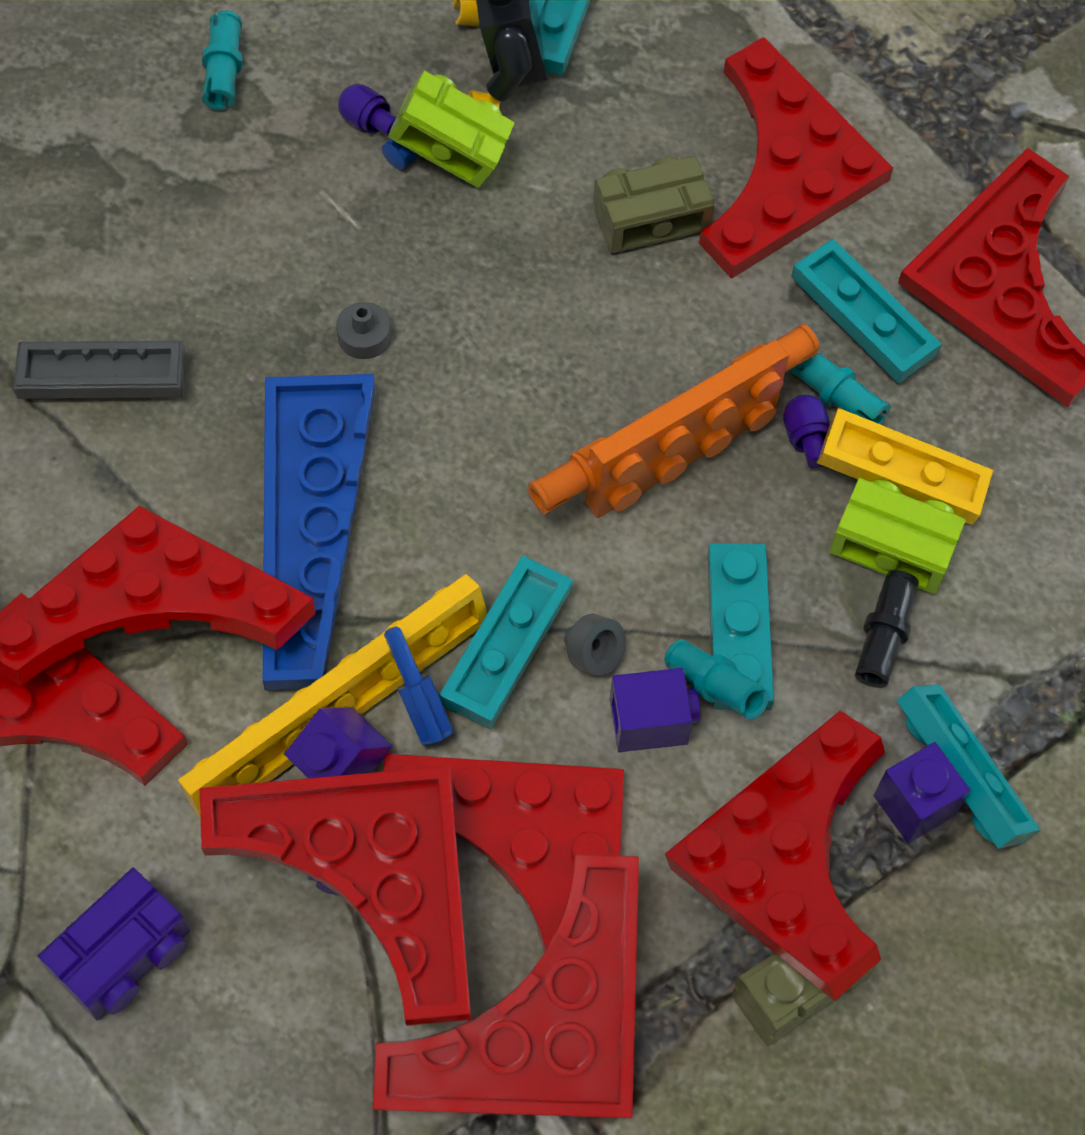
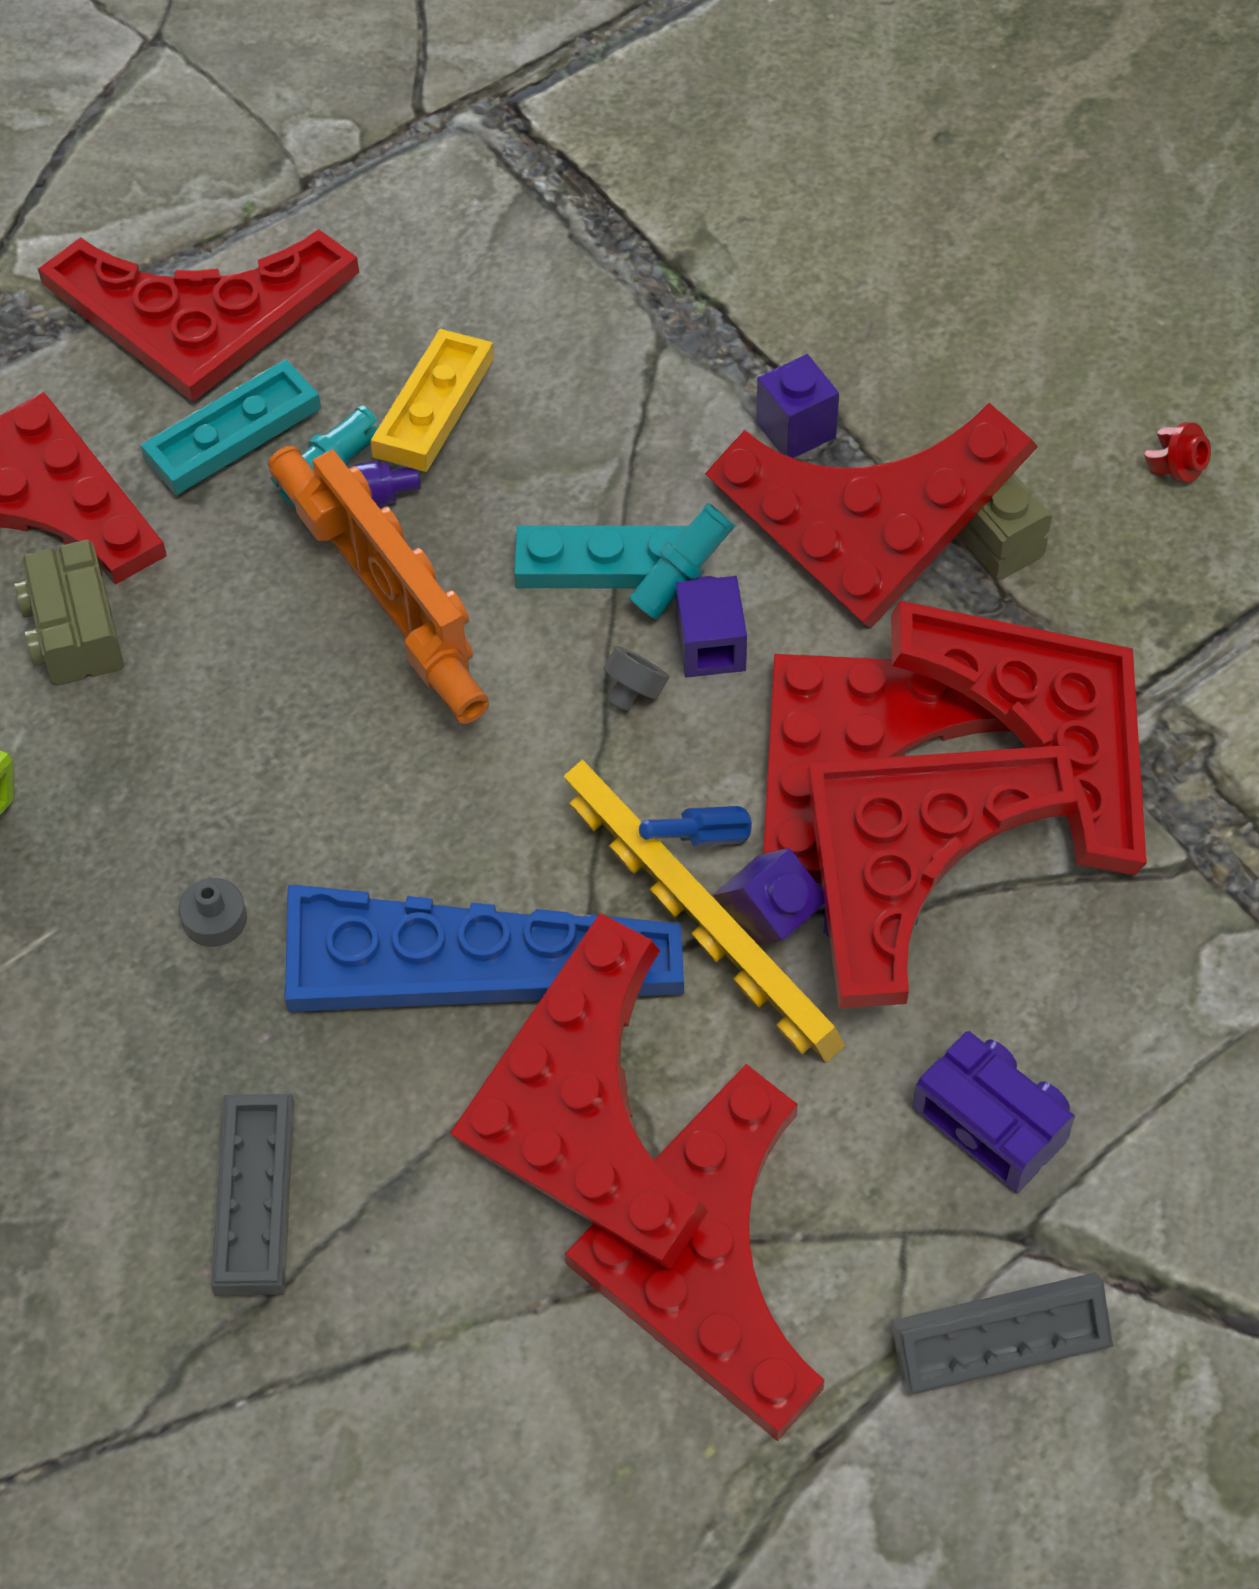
camera: 85 degrees left, 5 degrees down
(506, 642) = (629, 755): teal plate -> none
(887, 628) = (614, 430): black pin -> none
(897, 533) = (510, 412): lime brick -> none
(994, 804) = (718, 395): teal plate -> none

